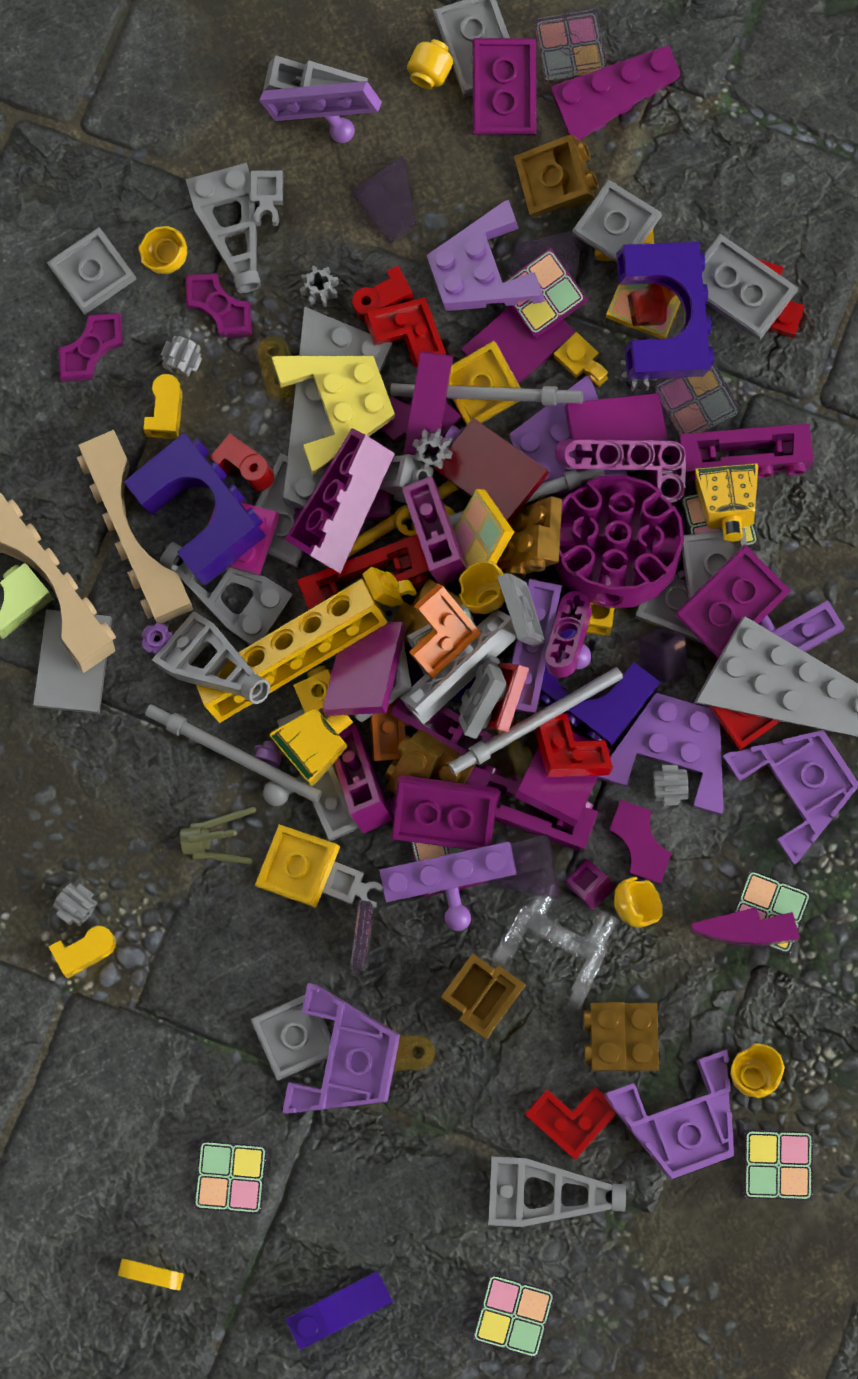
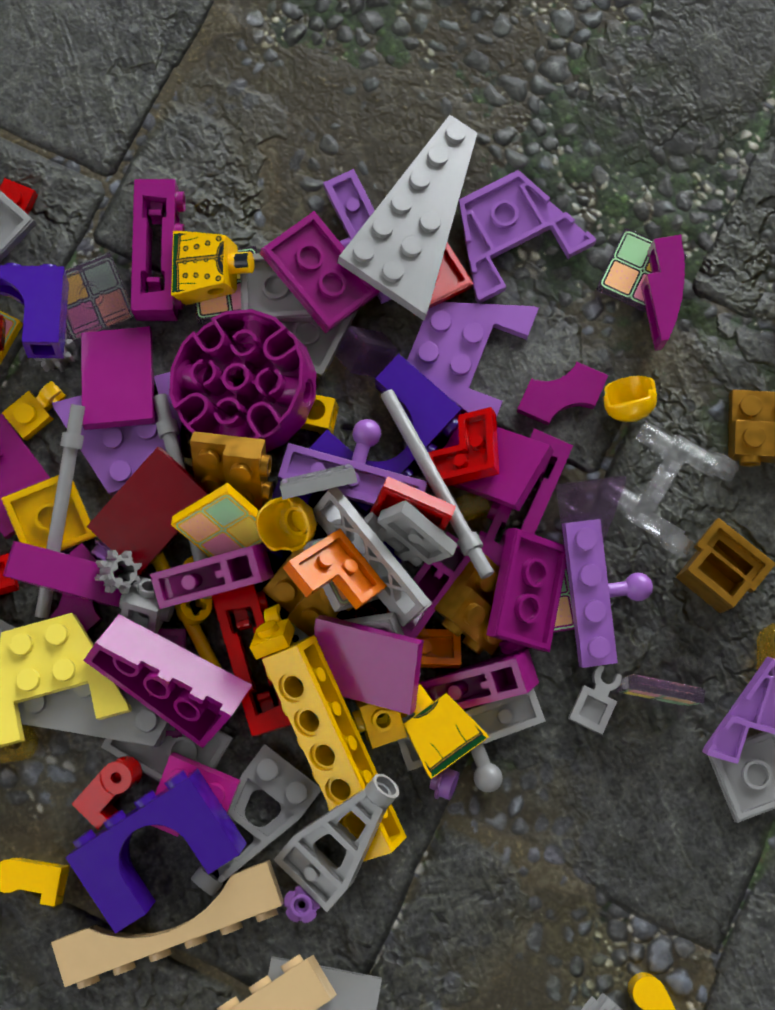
camera: 90 degrees left, 0 degrees up
(178, 725) = (403, 885): light grey bar -> none
(197, 838) = (536, 871): olive plant -> none
(297, 866) = (572, 758): yellow tile -> none
(573, 645) = (357, 433): magenta beam -> none
(590, 884) = (603, 449): magenta slope -> none
(621, 459) = (151, 371): magenta beam -> none
(670, 784) = (506, 355): light grey gear -> none

